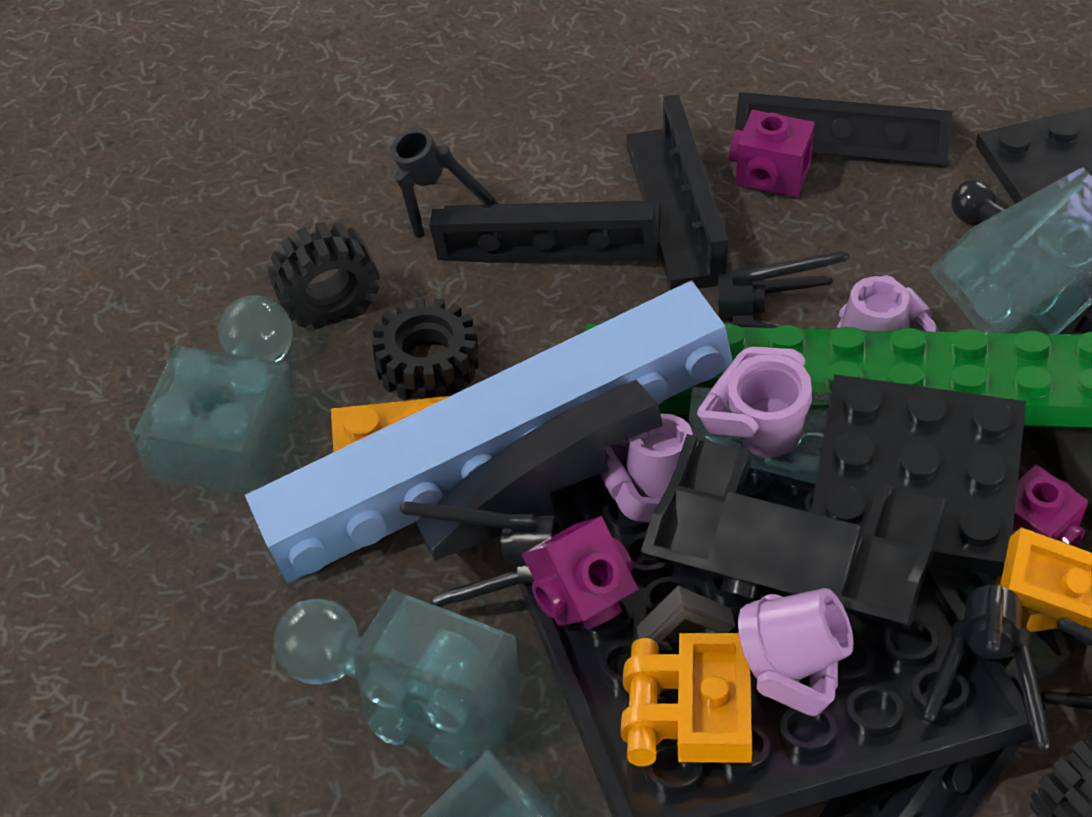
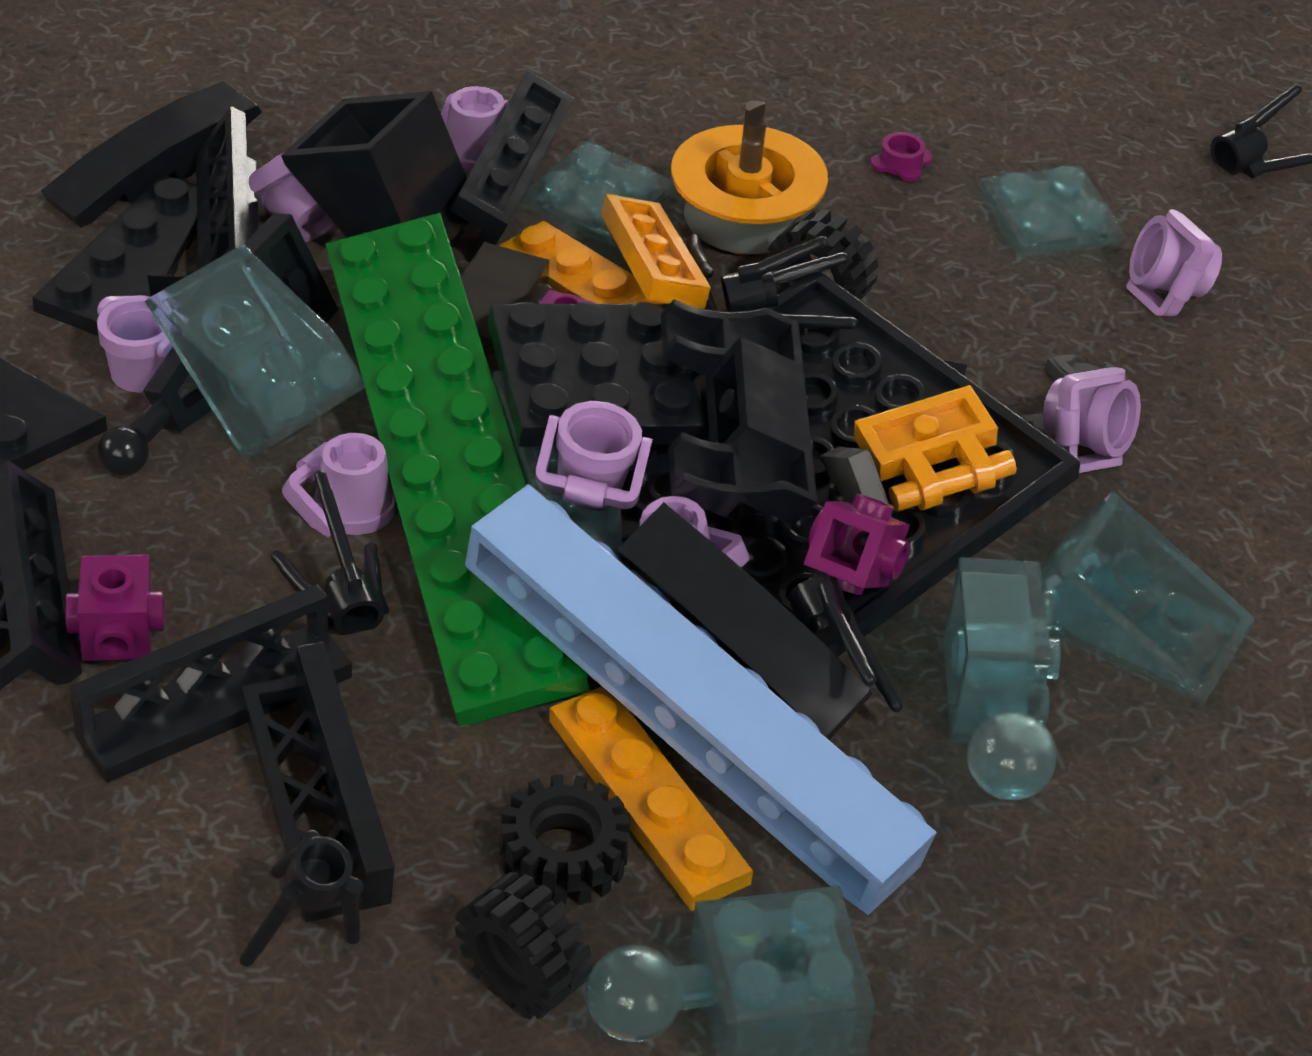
camera: 120 degrees left, 5 degrees down
(796, 639) = (853, 380): lavender piece -> none

